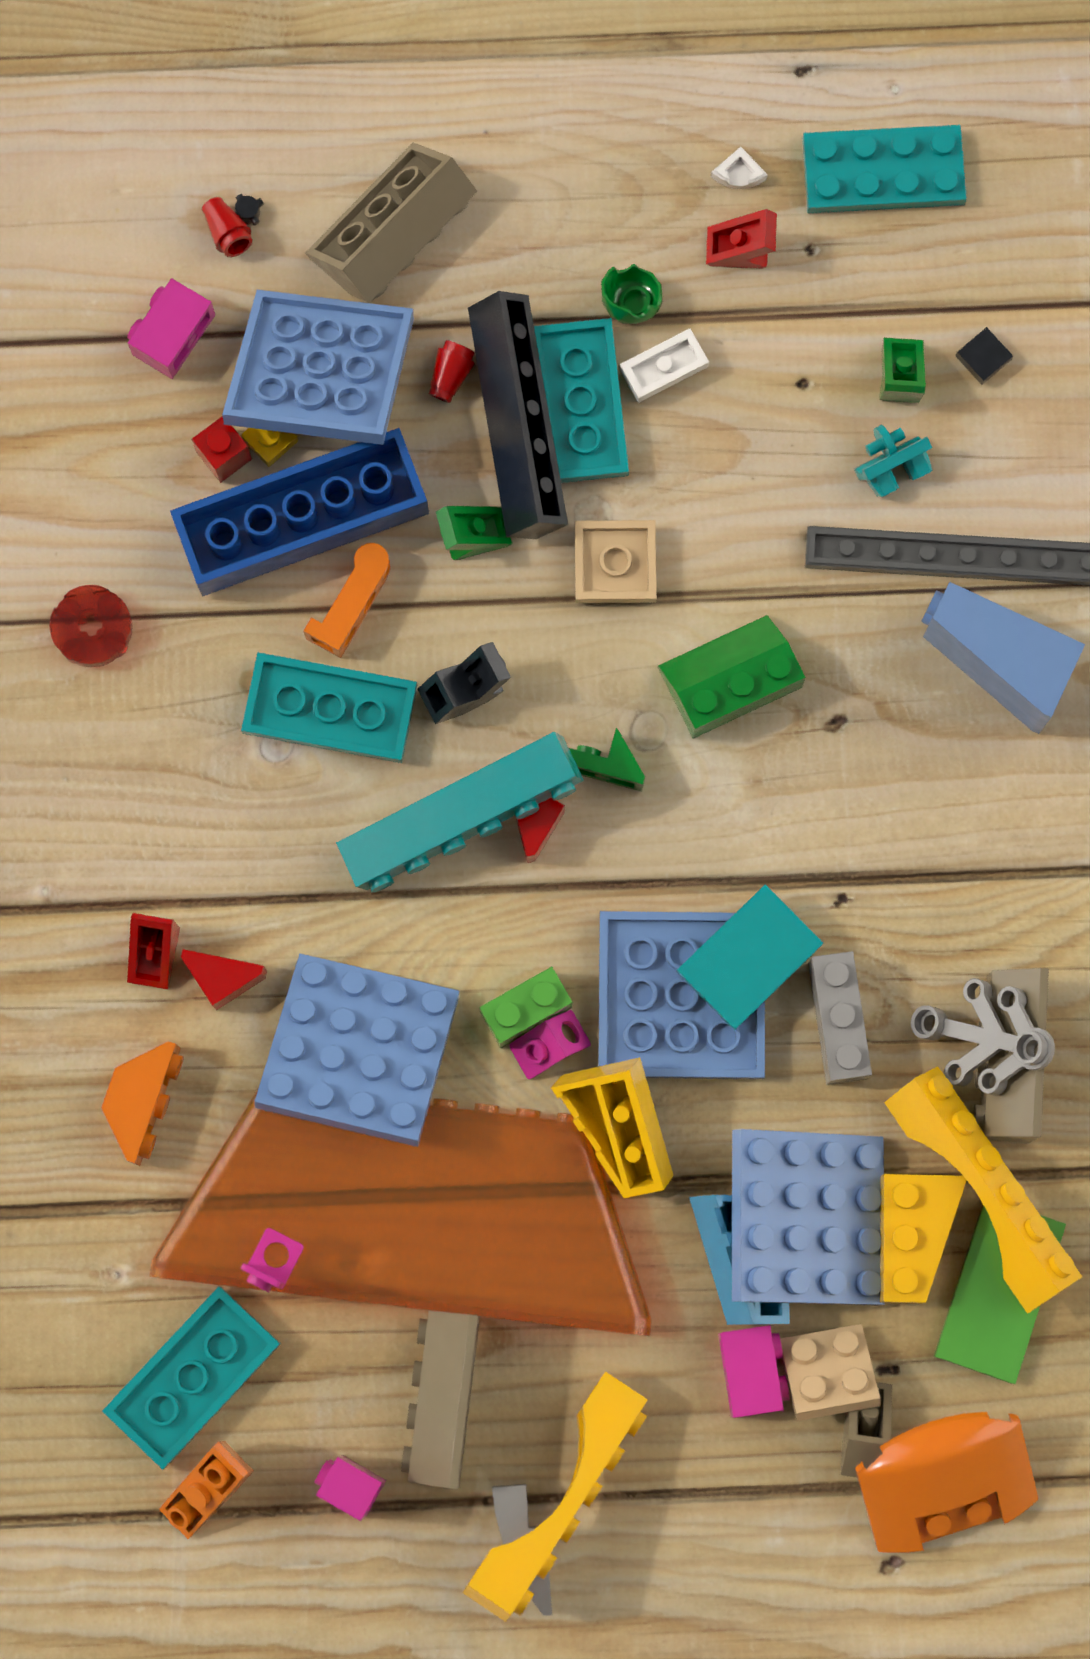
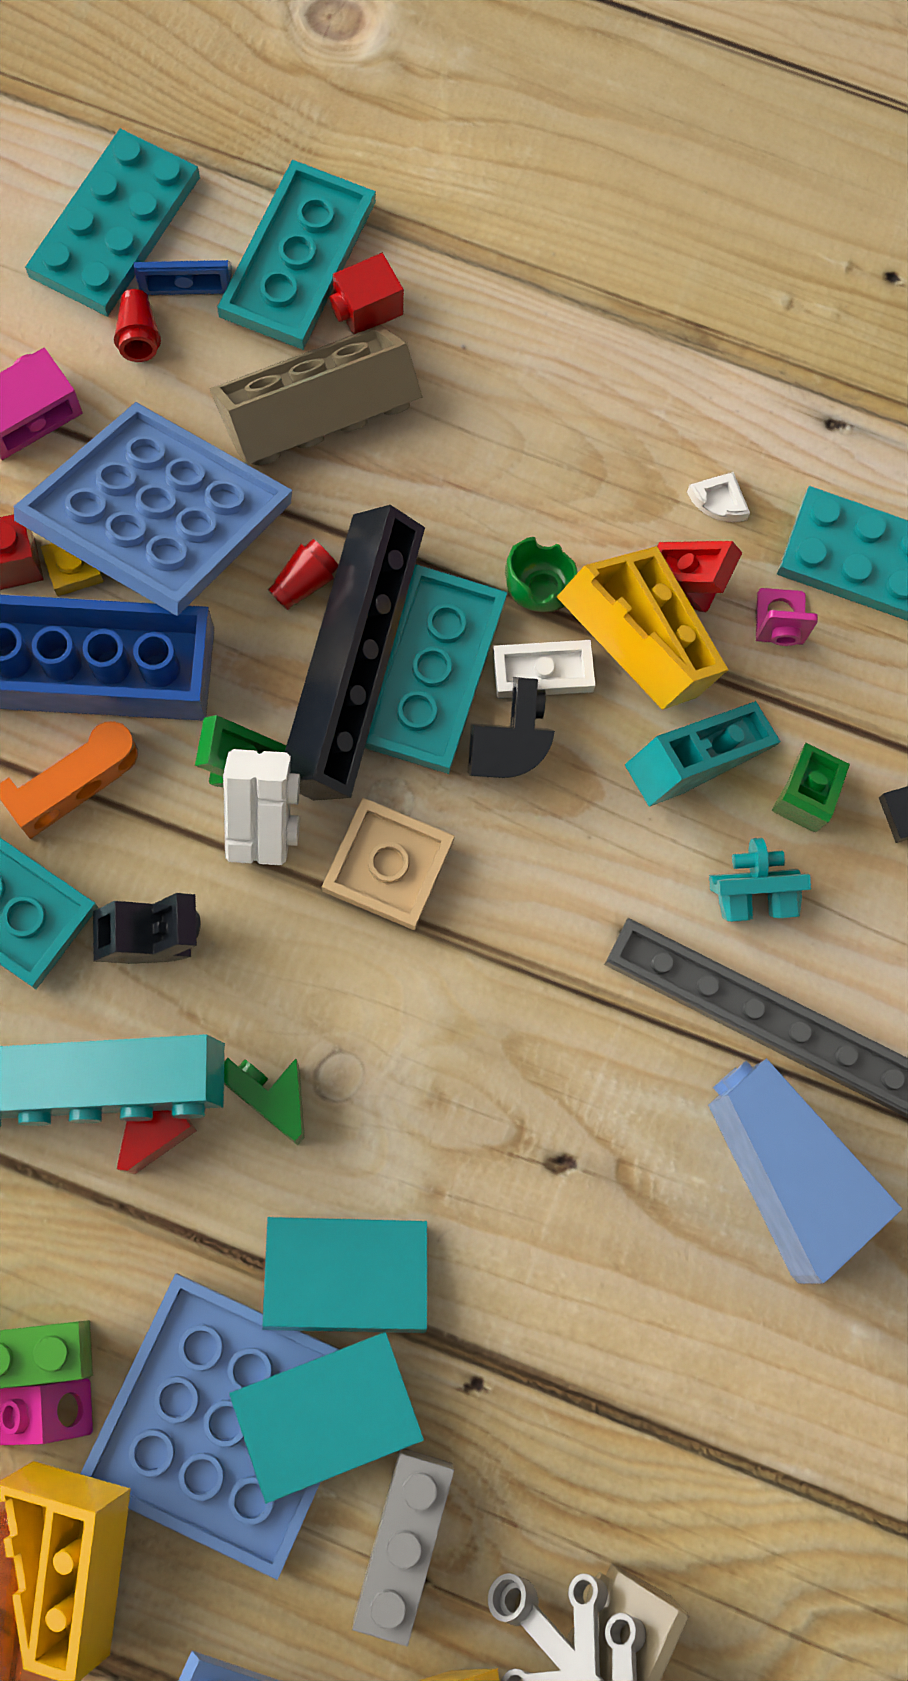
camera: 15 degrees right, 5 degrees down
(162, 147) = (113, 222): none -> teal plate
(242, 169) = (183, 277): none -> blue slope
(248, 208) = (171, 319): black piece -> none
(322, 113) = (294, 254): none -> teal plate
(394, 124) = (367, 294): none -> red brick
(505, 559) = (258, 807): none -> white brick
(672, 432) = (515, 748): none -> black brick
(718, 861) = (345, 1275): none -> teal tile
(728, 300) = (646, 625): none -> yellow wedge
(732, 675) = (463, 1054): green slope -> none
(809, 378) = (700, 752): none -> teal slope
(831, 256) = (783, 627): none -> dark pink bracket

